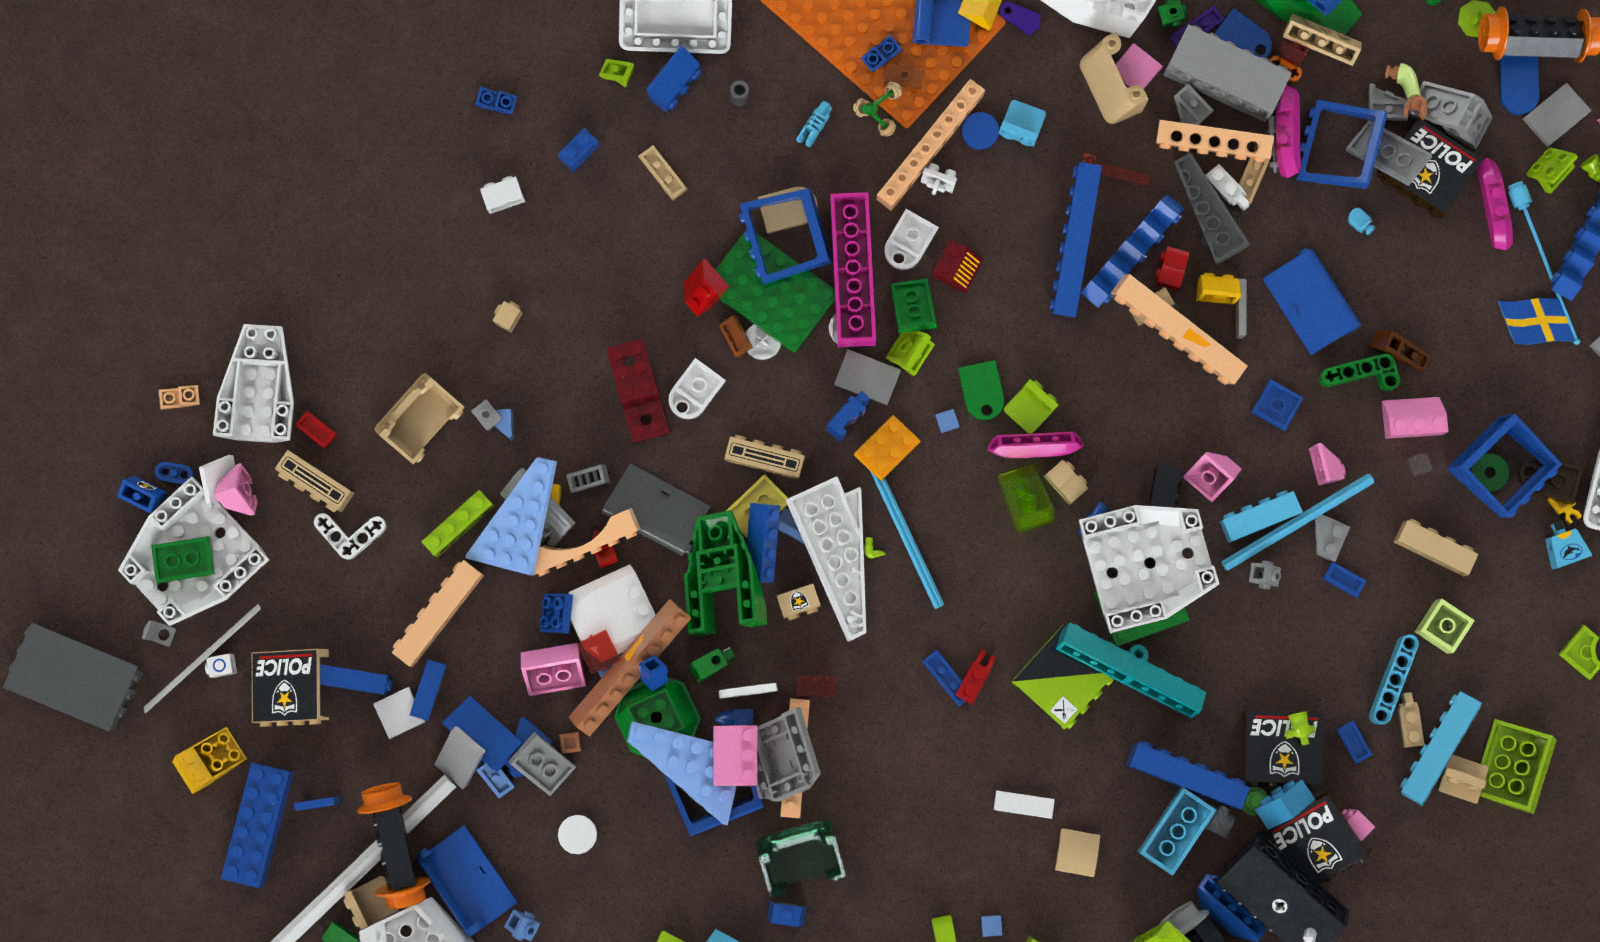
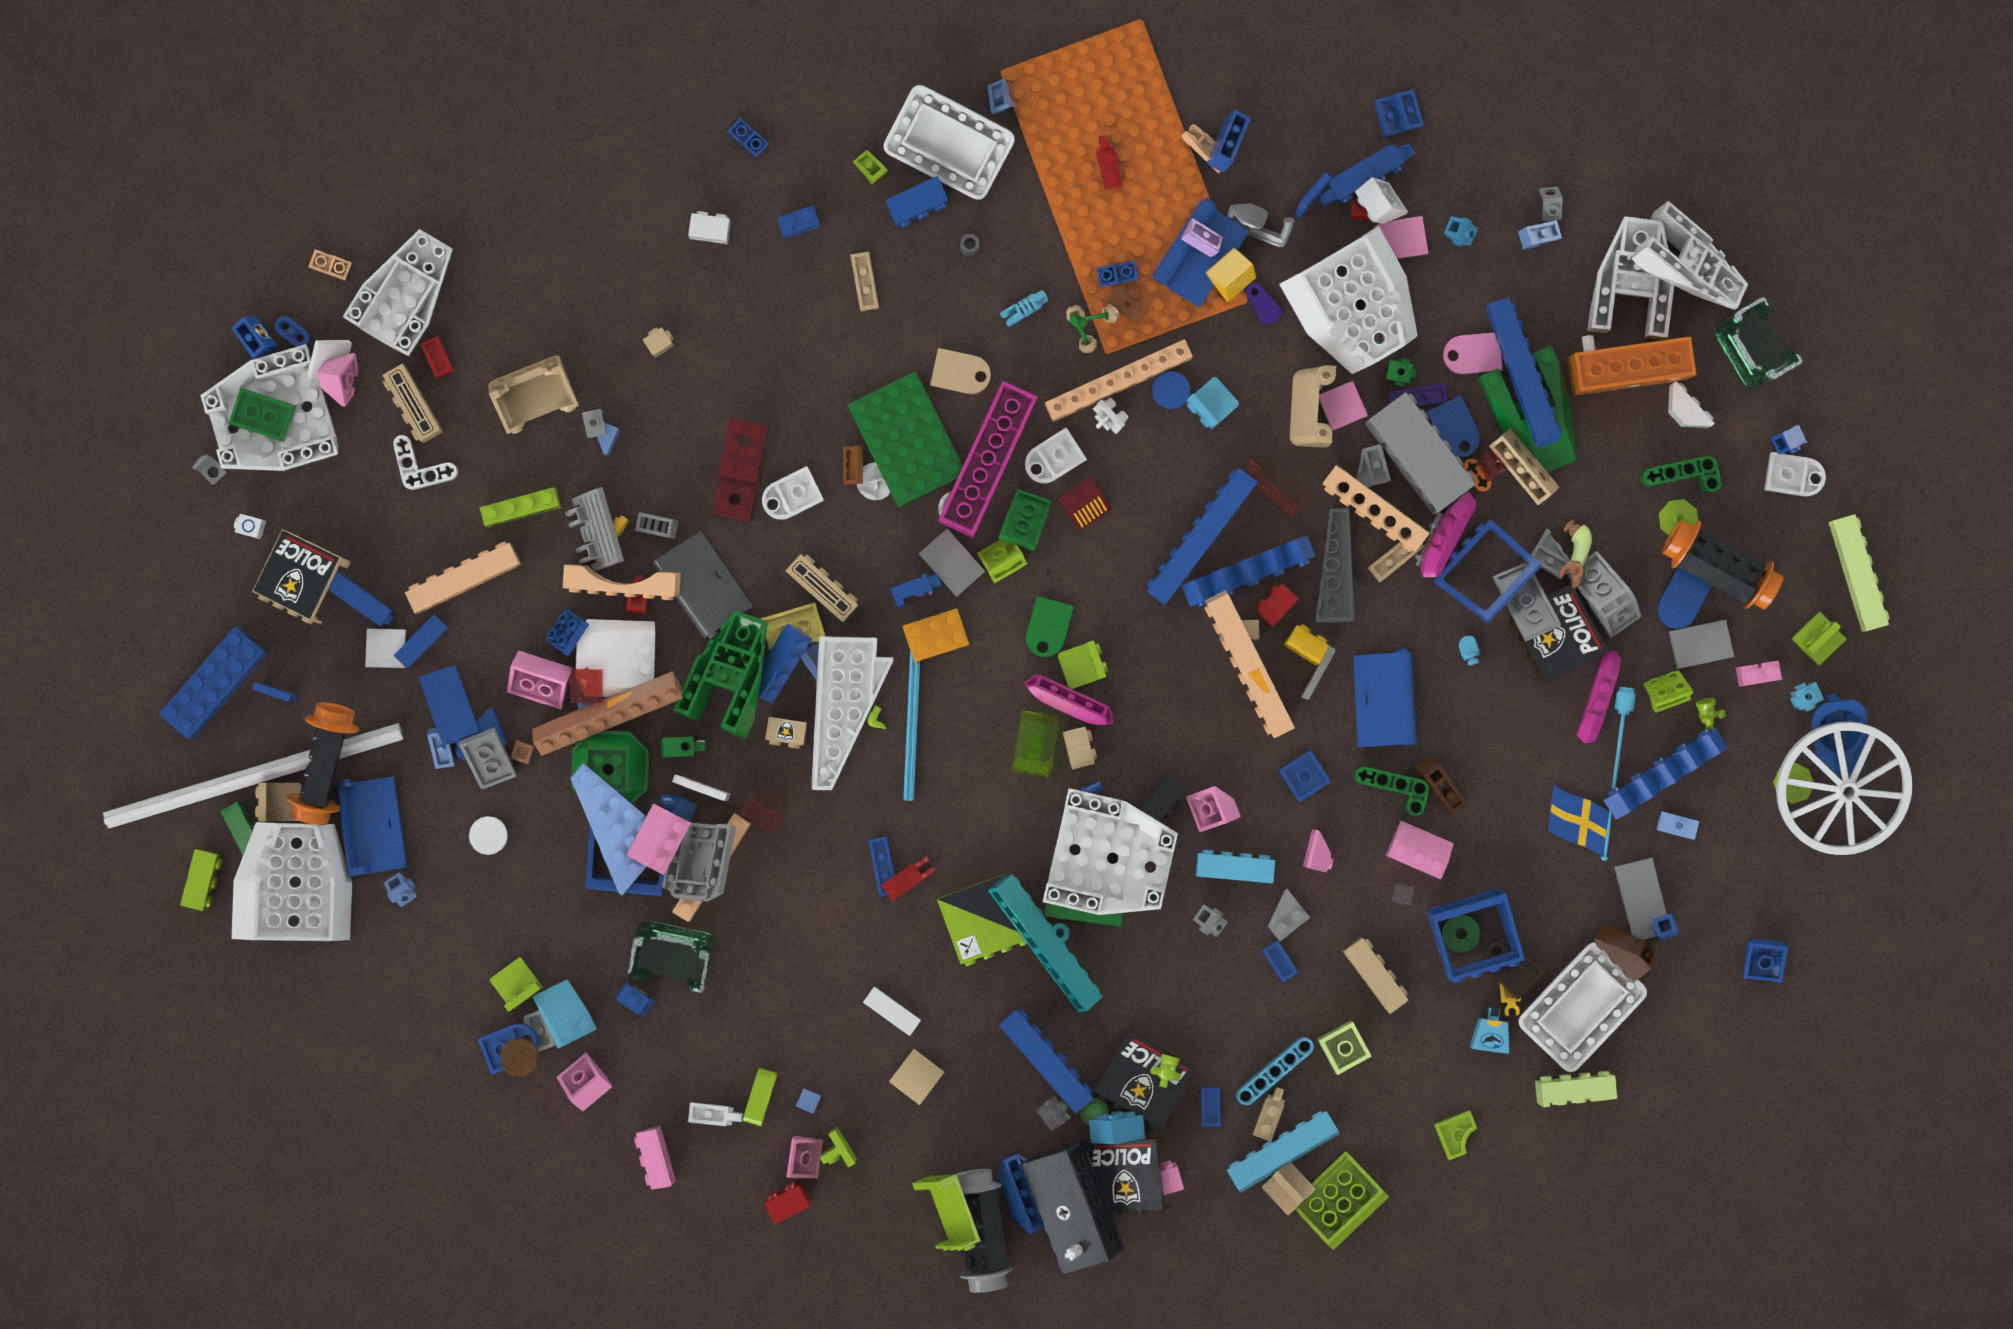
camera: 25 degrees right, 5 degrees up
(72, 677) = (114, 470): dark grey panel -> none
(199, 660) = (241, 509): white sticker -> none
(208, 760) = (199, 604): yellow slope -> none
(459, 757) = (418, 716): light grey tile -> none
(517, 528) = (570, 538): light blue wing -> none
(653, 673) = (624, 729): blue brick -> none
(703, 288) = (845, 407): red slope -> none
(815, 225) = (974, 404): blue windscreen -> none
(947, 421) = (1002, 638): medium blue tile -> none
(1176, 831) = (1011, 1103): medium azure slope -> none
(1227, 187) = (1365, 556): white hinge -> none
(1298, 521) = (1265, 889): medium azure axle -> none

